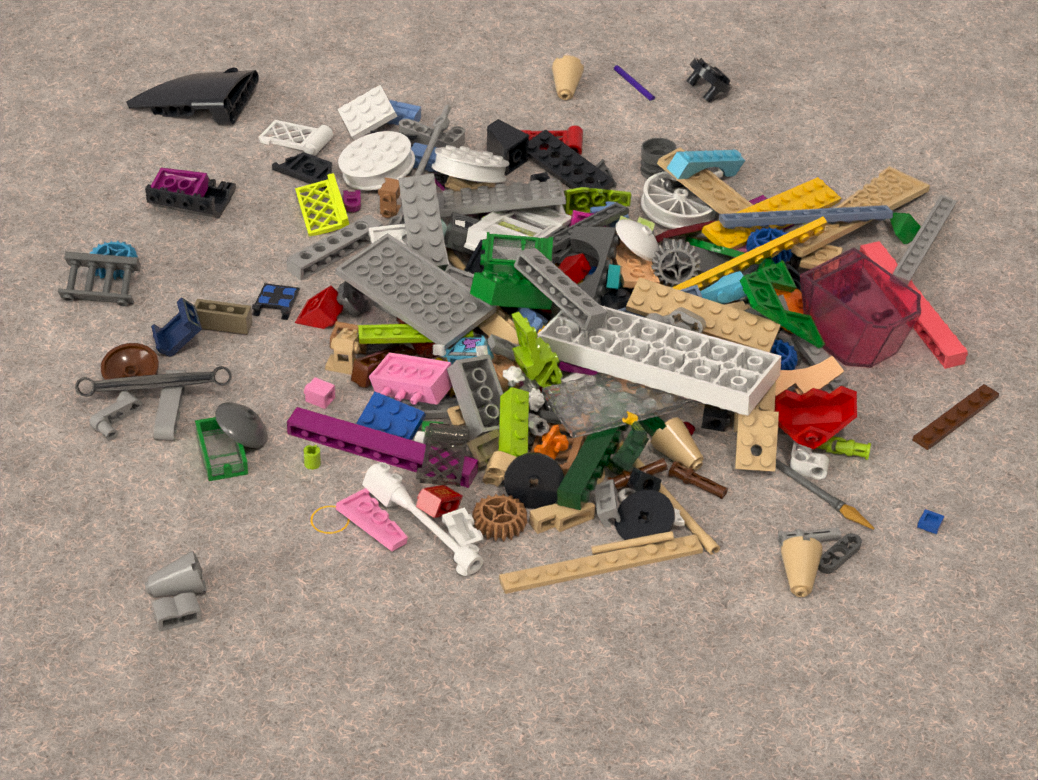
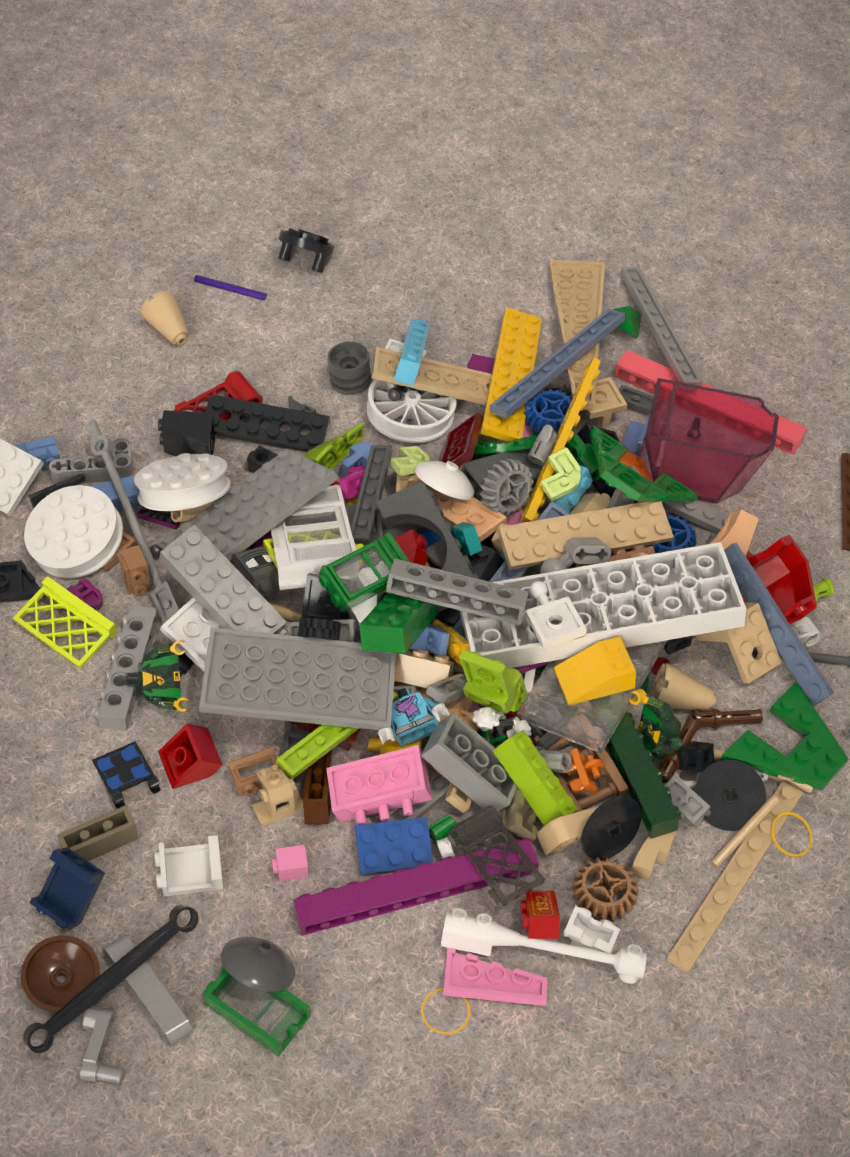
camera: 40 degrees left, 10 degrees up
(259, 363) = (189, 868): none -> white panel
(312, 457) = (362, 941): lime piece -> none
(341, 251) = (160, 677): none -> torso
(352, 299) = (214, 725): dark grey plate -> none
(457, 270) = (319, 628): none -> black tyre
(610, 338) = (561, 610): none -> white plate
(616, 389) = (596, 672): none -> yellow slope
(670, 548) = (777, 845): none -> yellow piece
(722, 278) = (567, 475): none -> yellowish green plate
(725, 534) = (811, 762): none -> green wing
(733, 252) = (542, 445): none -> light grey hinge
(787, 440) = (783, 635): none -> sand blue plate

